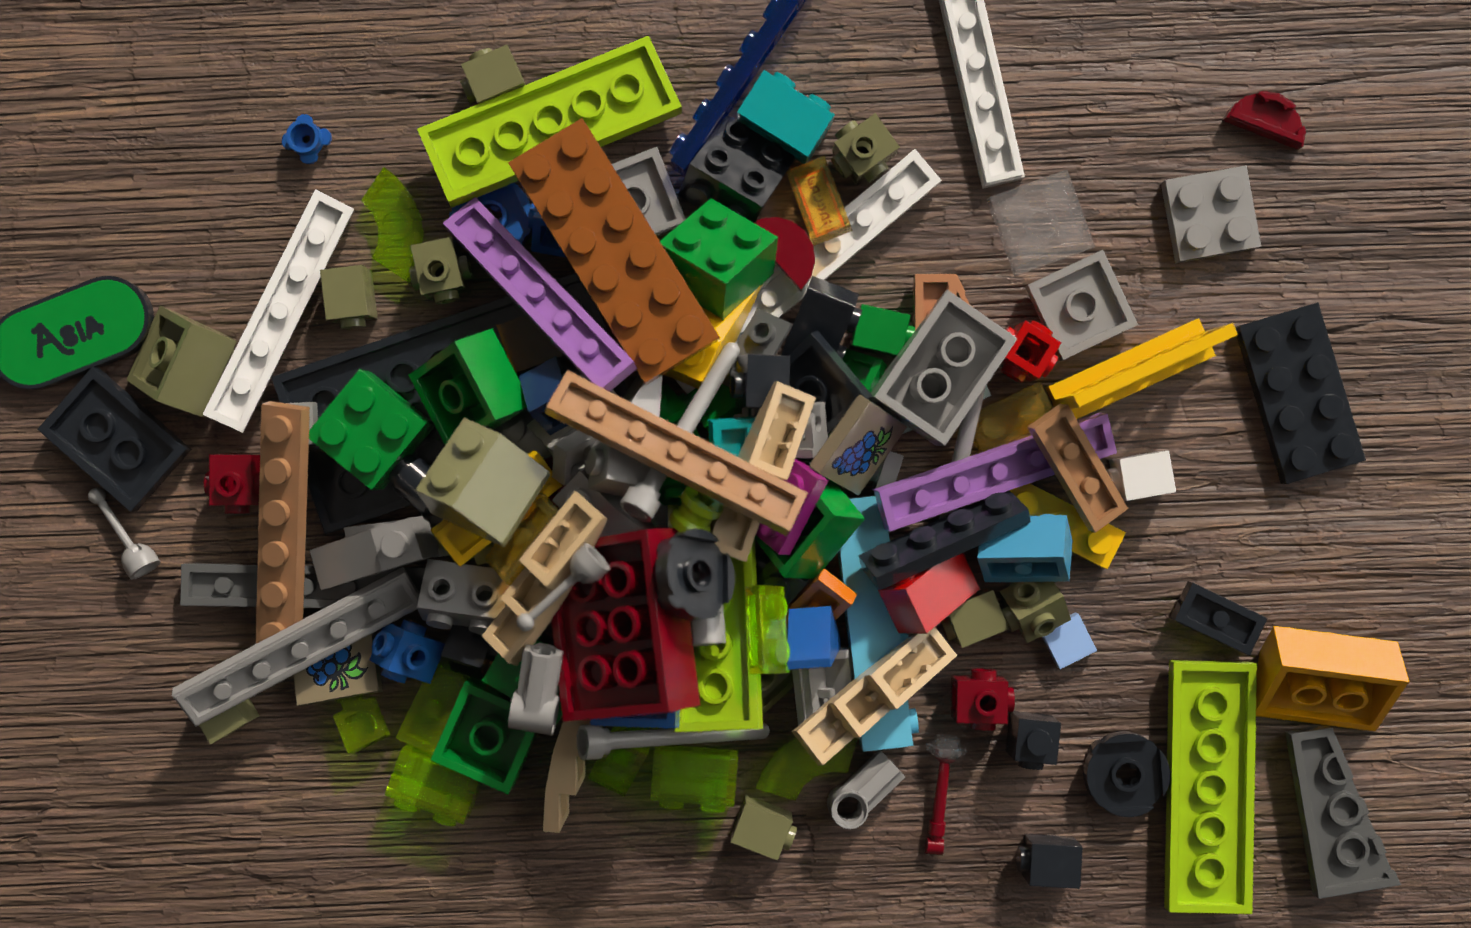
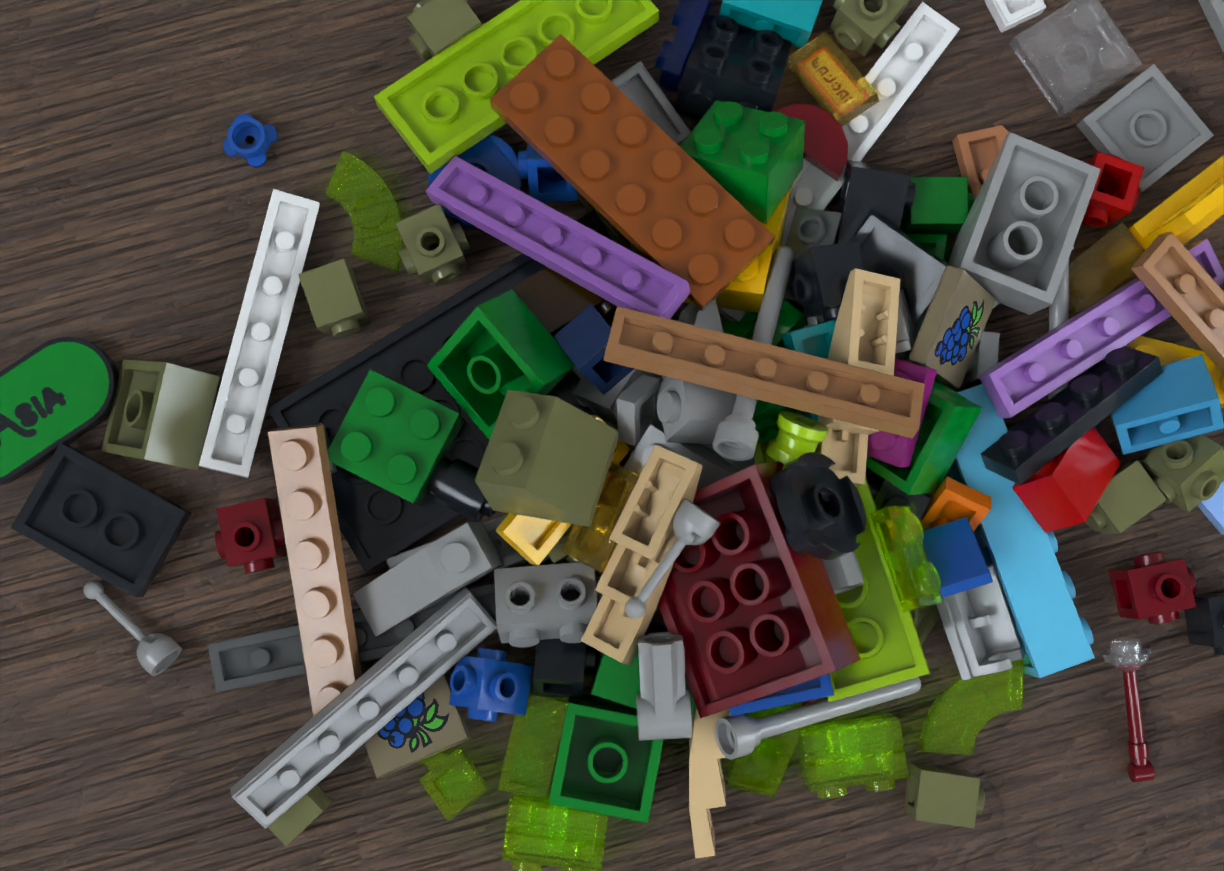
camera: 20 degrees left, 5 degrees down
(868, 786) = (1051, 720): light grey piece -> none
(873, 694) = (1037, 609): tan slope -> none

